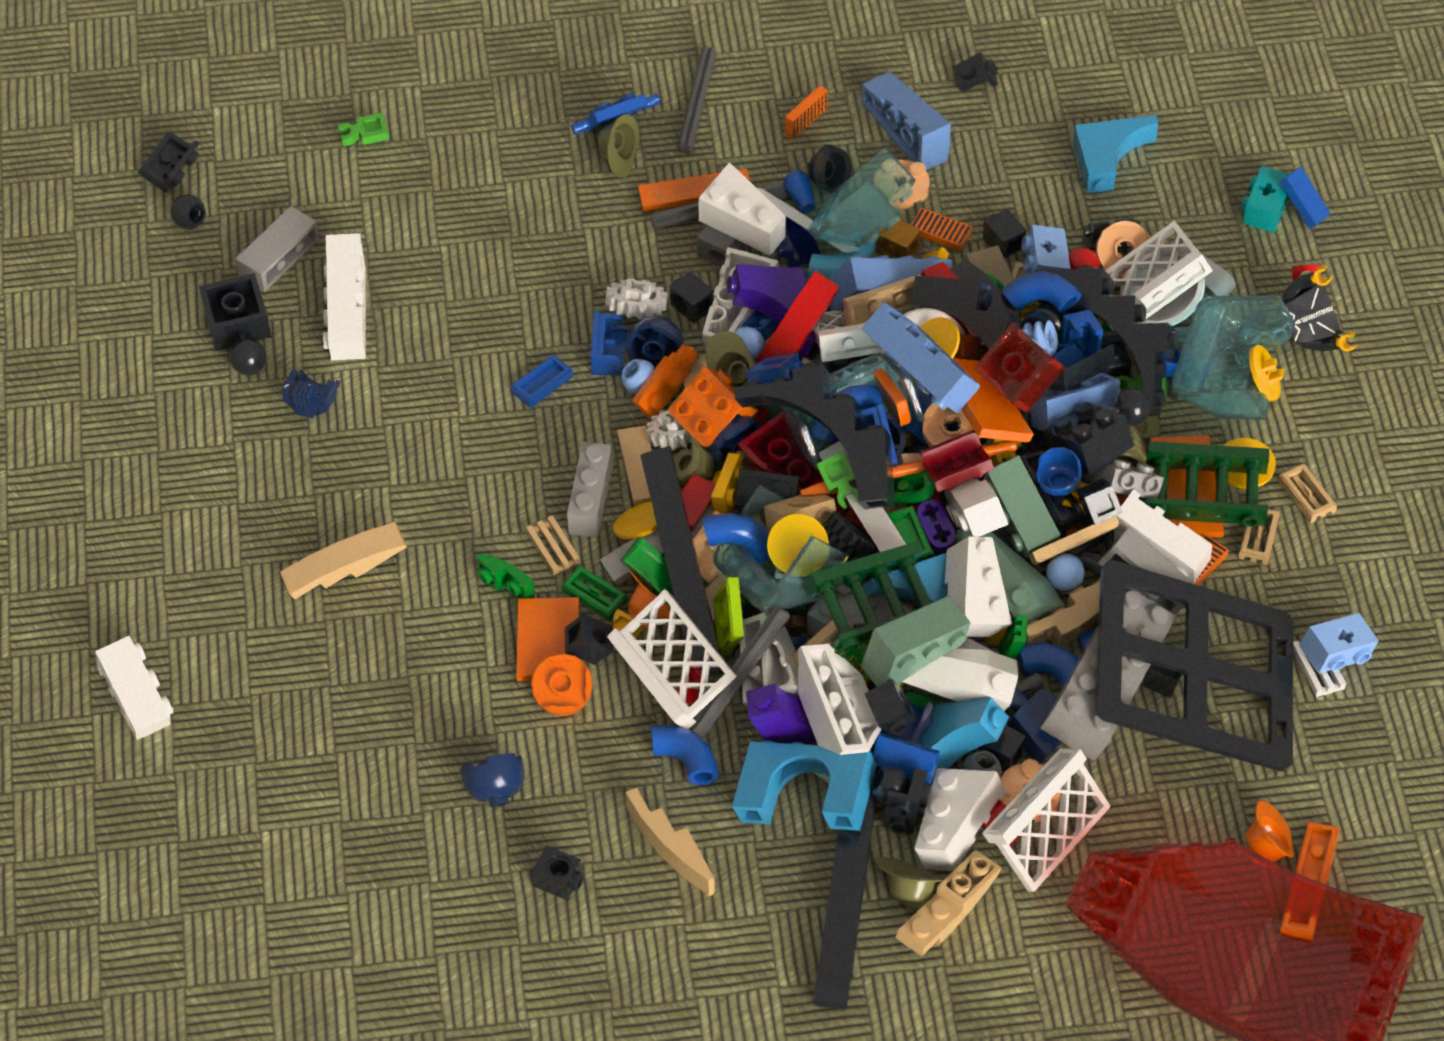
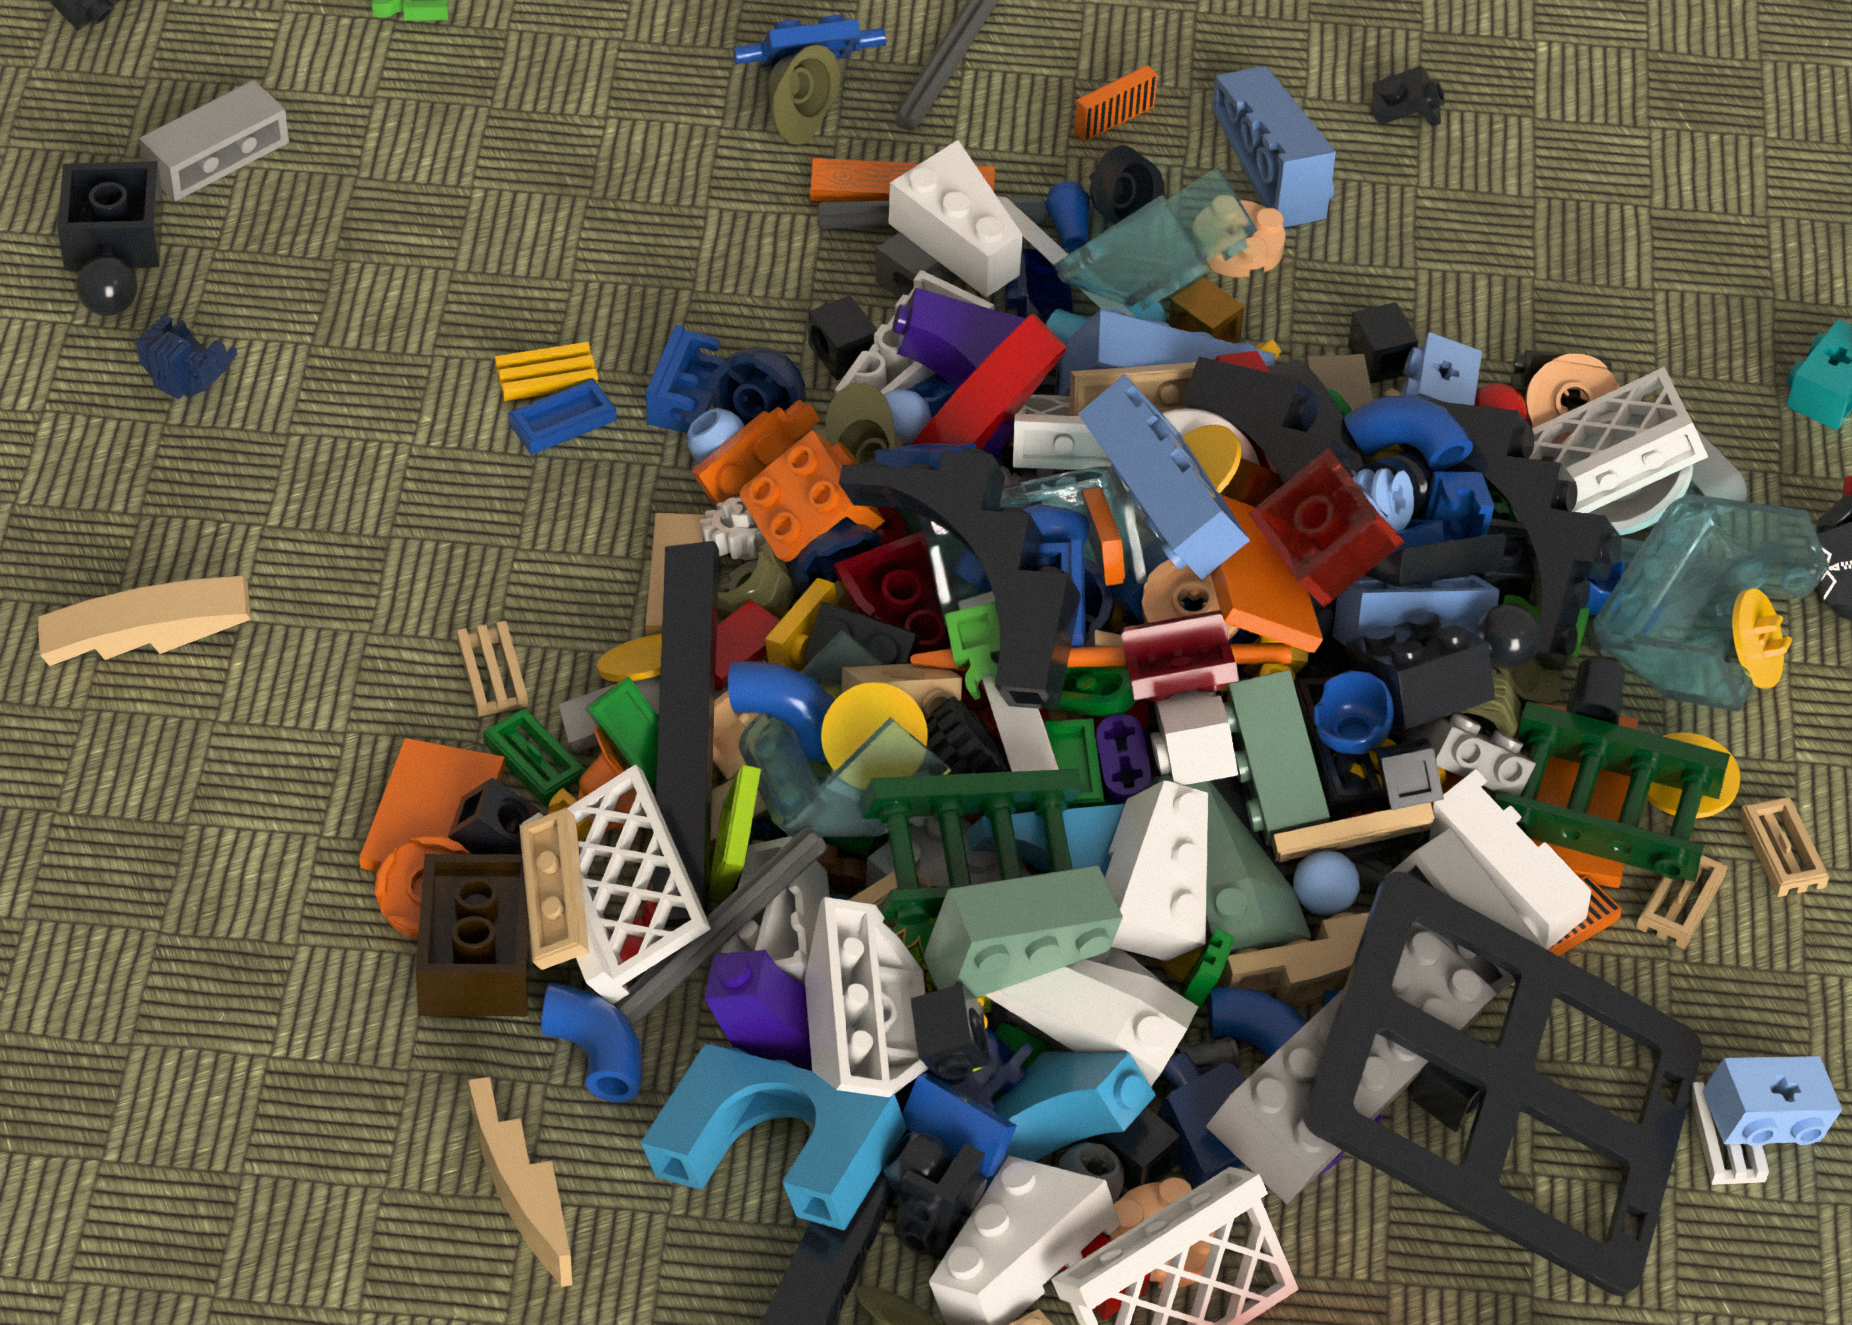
camera: 10 degrees right, 5 degrees down
(187, 211) = (95, 60): black piece -> none
(345, 297) = (291, 227): white wedge -> none
(494, 779) = (260, 1012): dark blue cylinder -> none
(501, 574) = (394, 697): green slope -> none
(521, 351) = (544, 365): none -> yellow tile
(555, 861) = (312, 1170): black brick -> none
(590, 489) = (578, 593): light grey brick -> none
(600, 707) = (473, 936): none -> dark brown slope
(636, 298) = (751, 320): white gear -> none
(639, 671) = (554, 889): none -> tan tile
(942, 229) = (1284, 318): orange tile -> none
(1104, 143) = (1589, 240): dark azure arch -> none
(1186, 427) = (1598, 690): none -> black piece

